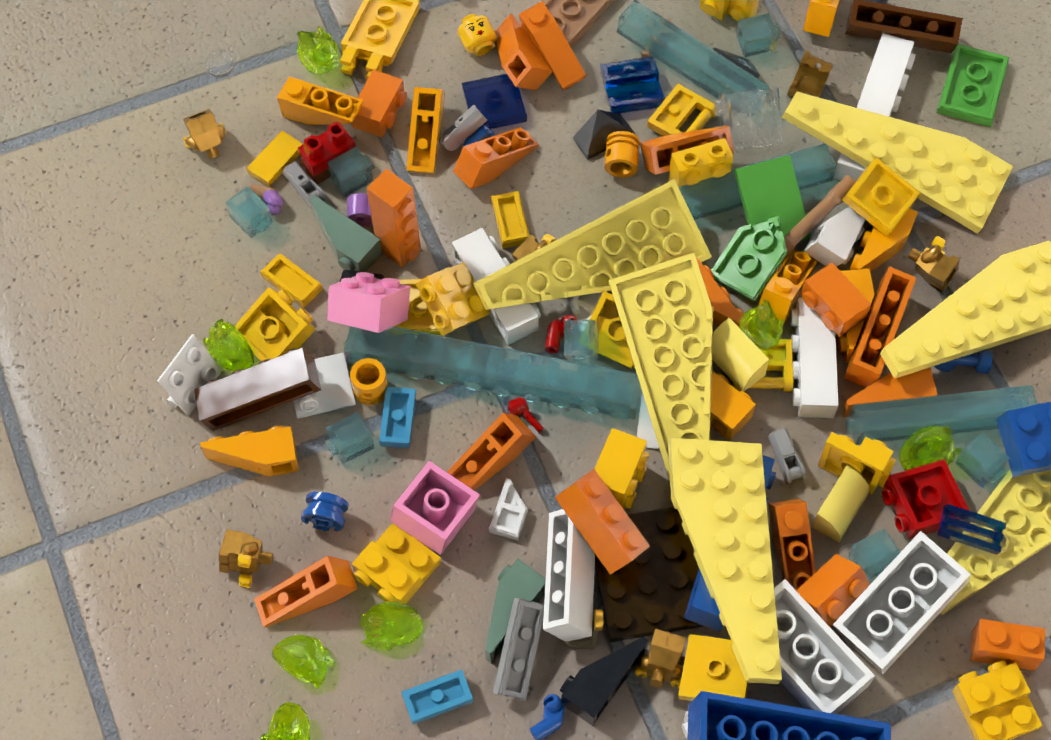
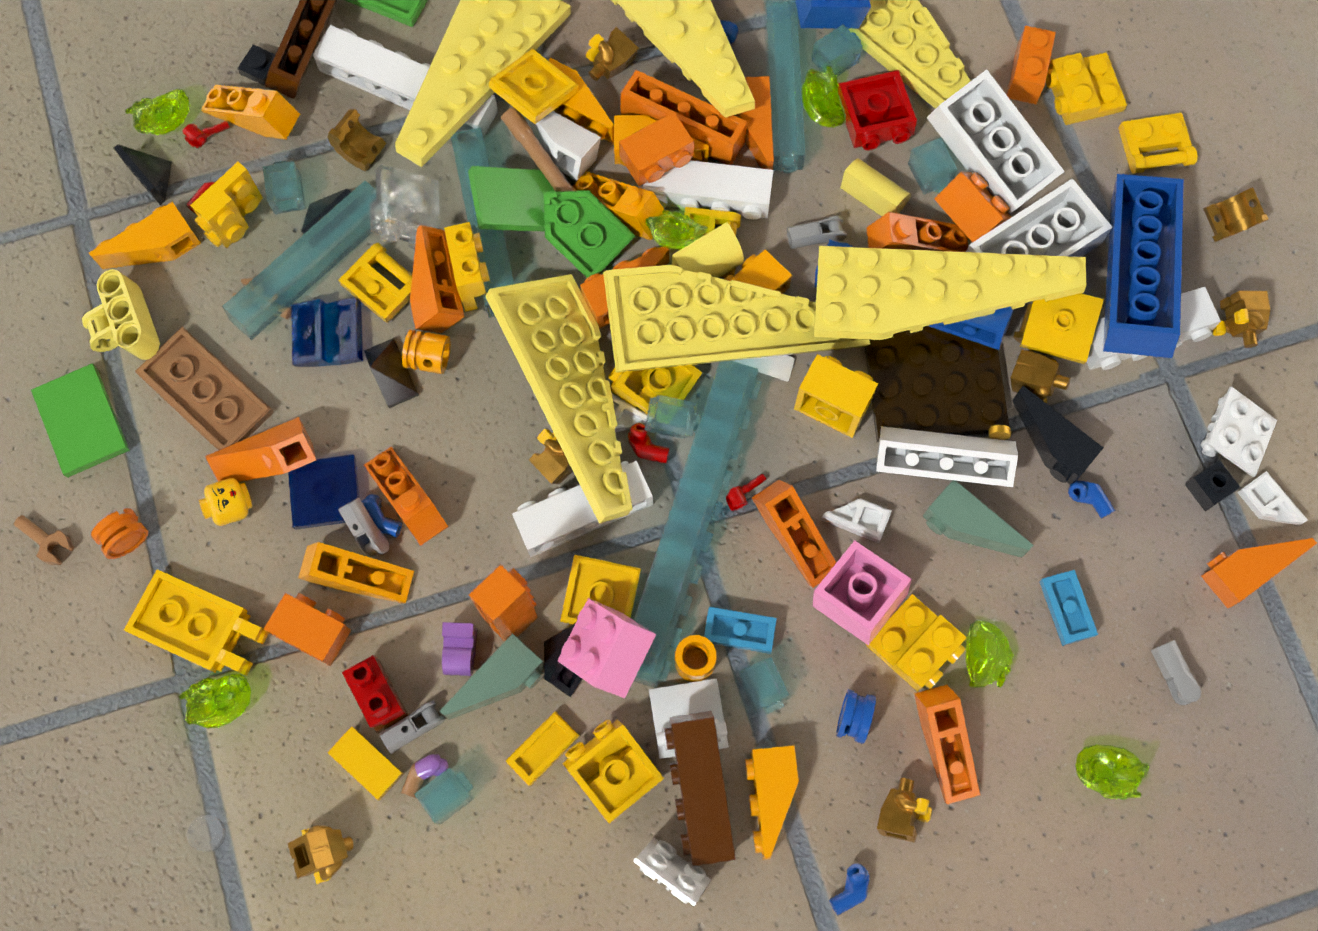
camera: 85 degrees left, 10 degrees up
(179, 526) = (855, 889): none -> blue arm
(228, 347) = (628, 828): clear neon green hat -> none
(303, 658) = (1019, 752): clear neon green hat -> none
(316, 104) = (304, 699): light orange slope -> none
(351, 171) = (402, 666): clear light blue brick -> none
(452, 298) = (604, 553): yellow plate -> none
(510, 219) = (491, 487): yellow tile -> none
(519, 649) = (1025, 515): light grey tile -> none
(552, 45) = (263, 411): orange slope -> none
(602, 522) = (903, 411): orange brick -> none
(869, 459) = (842, 148): yellow plate -> none
(996, 525) = (924, 54): clear blue tile -> none

